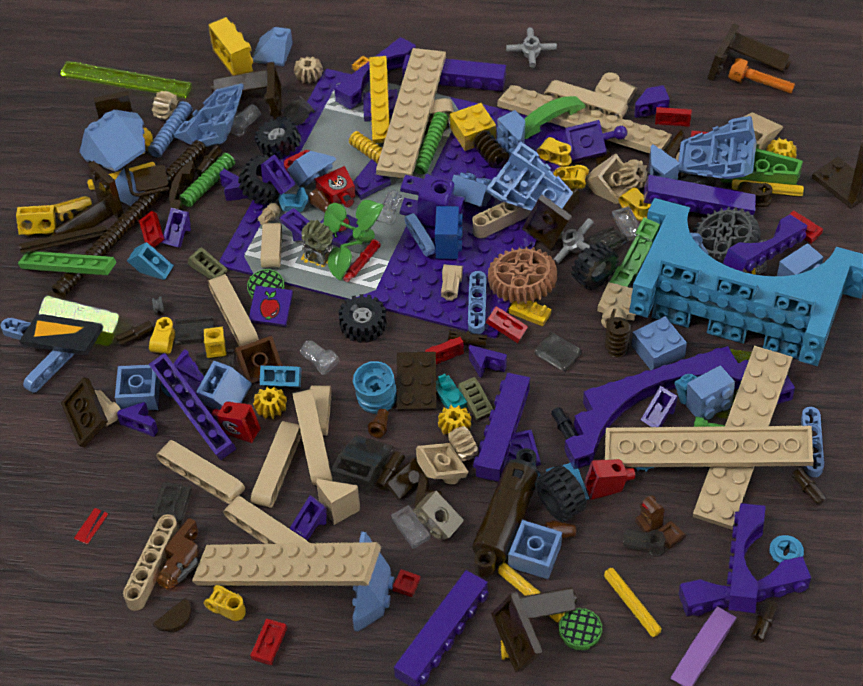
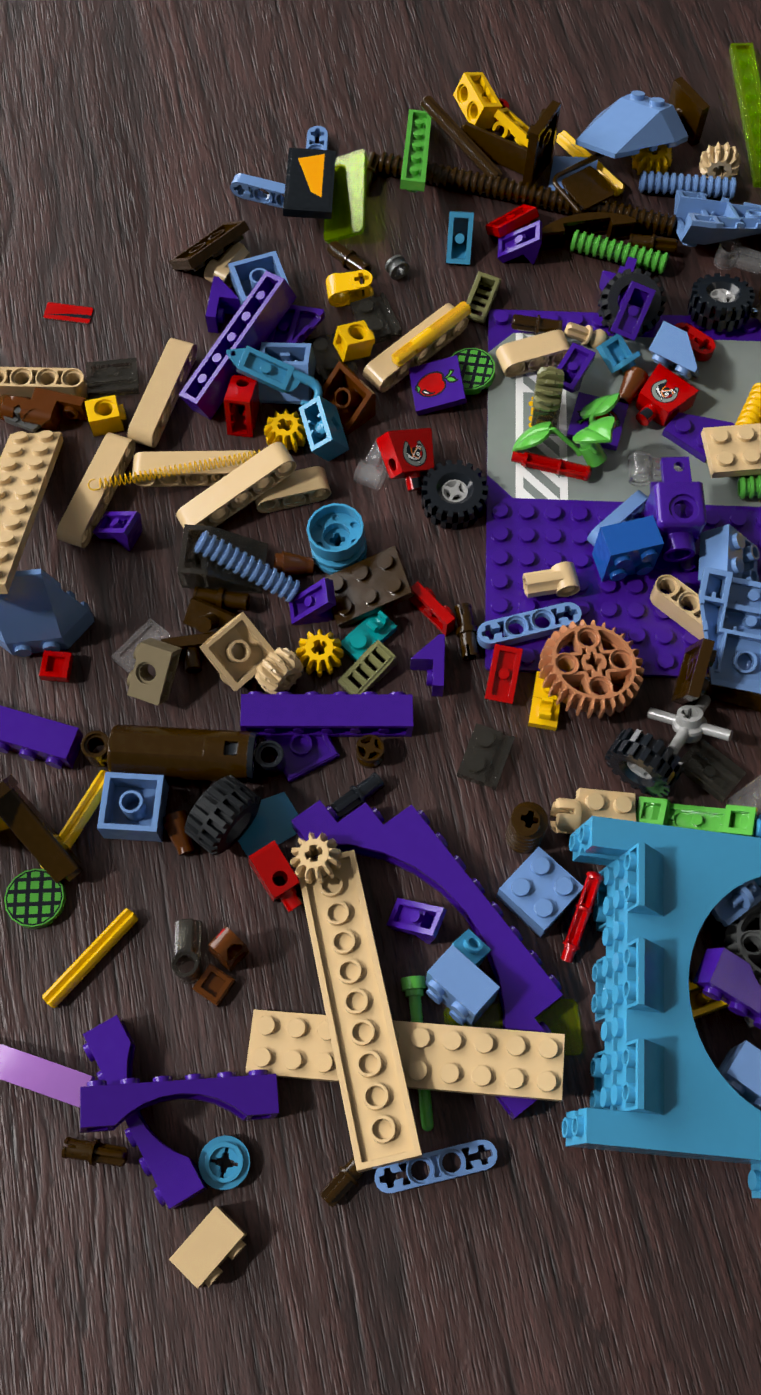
camera: 70 degrees right, 15 degrees up
(203, 519) = (97, 411): none -> yellow brick
(228, 388) = (271, 371): none -> dark azure plate
(234, 294) = (431, 334): none -> yellow axle
(248, 237) = (535, 324): none -> dark brown axle
(280, 465) = (170, 469): none -> yellow piece
(325, 332) = (407, 455): none -> red torso
(339, 498) = (145, 545): tan slope -> none
(377, 441) = (247, 566): none -> medium blue piece
(416, 415) = (313, 604): none -> dark purple slope
(532, 406) = (370, 745): none -> dark brown wheel
(613, 439) = (326, 861): none -> tan gear
(680, 326) = (581, 915): none -> red piece
(836, 567) = (209, 1247): none -> tan brick

